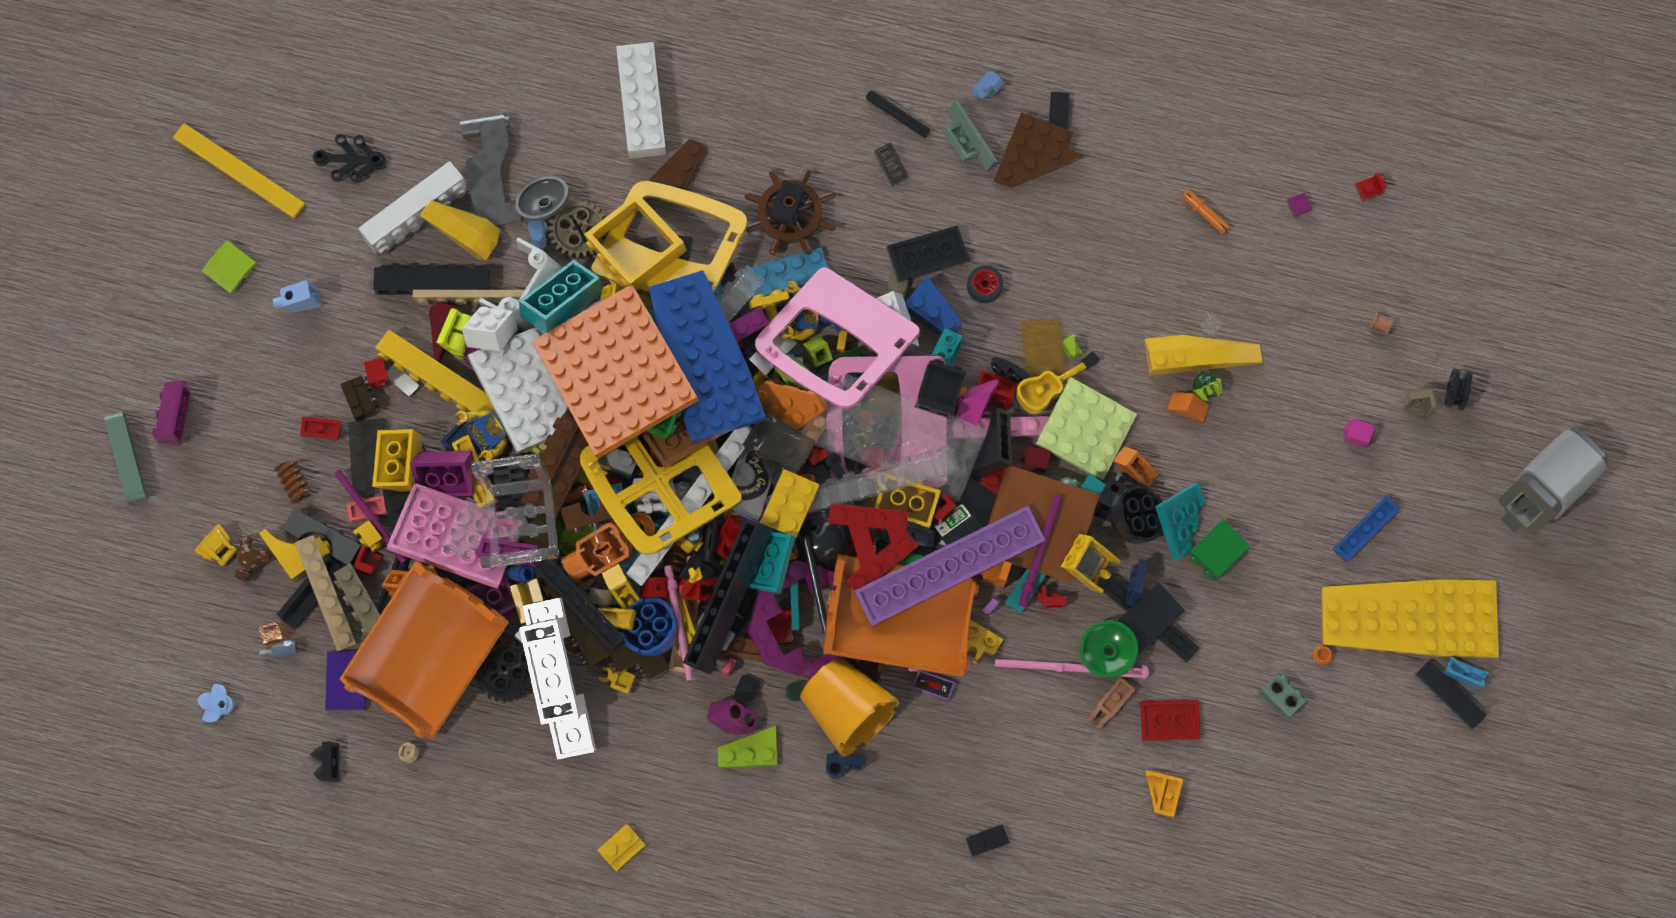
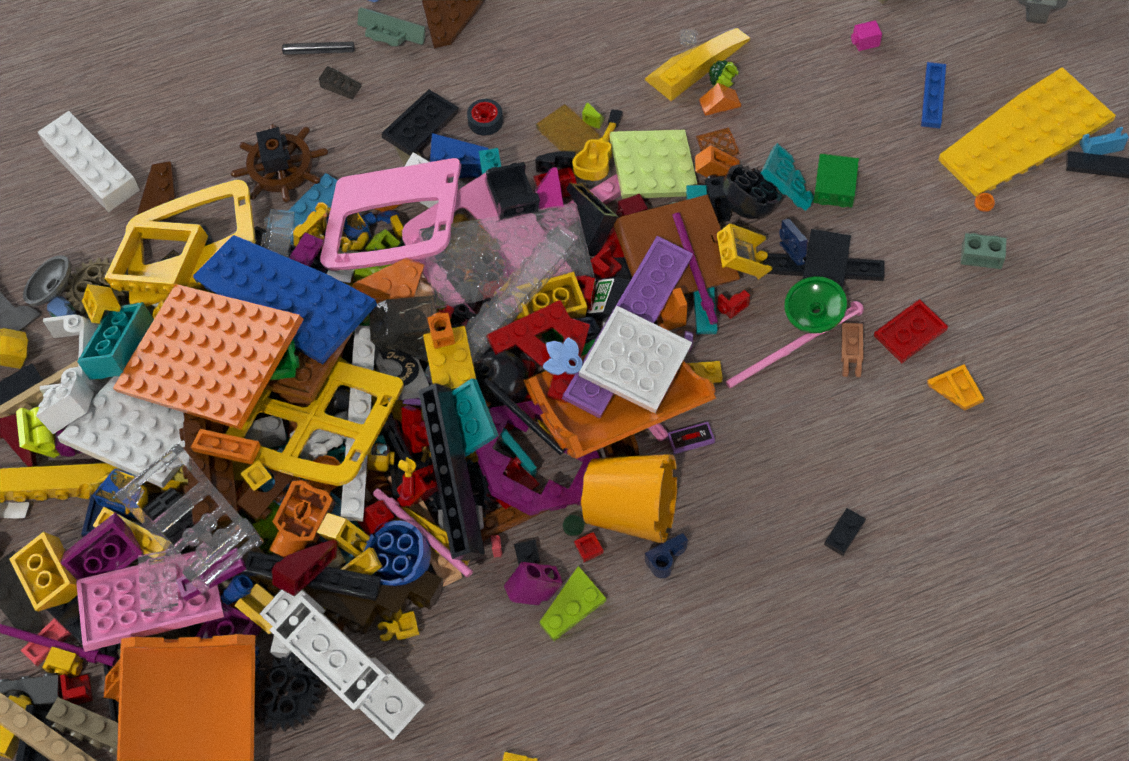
camera: 30 degrees left, 15 degrees down
(568, 252) = (98, 299): none -> yellow panel
(572, 595) = (303, 566): none -> dark red slope
(578, 461) = (226, 446): none -> orange plate
(586, 499) = (256, 475): none -> yellow tile
(793, 716) = (588, 547): none -> red plate
(796, 487) = (444, 337): none -> orange brick
(875, 558) = (560, 357): none -> light blue plate
(930, 600) = (635, 359): none -> white plate
(977, 495) = (604, 265): none -> red panel
(1159, 433) = (715, 134): none -> clear orange window

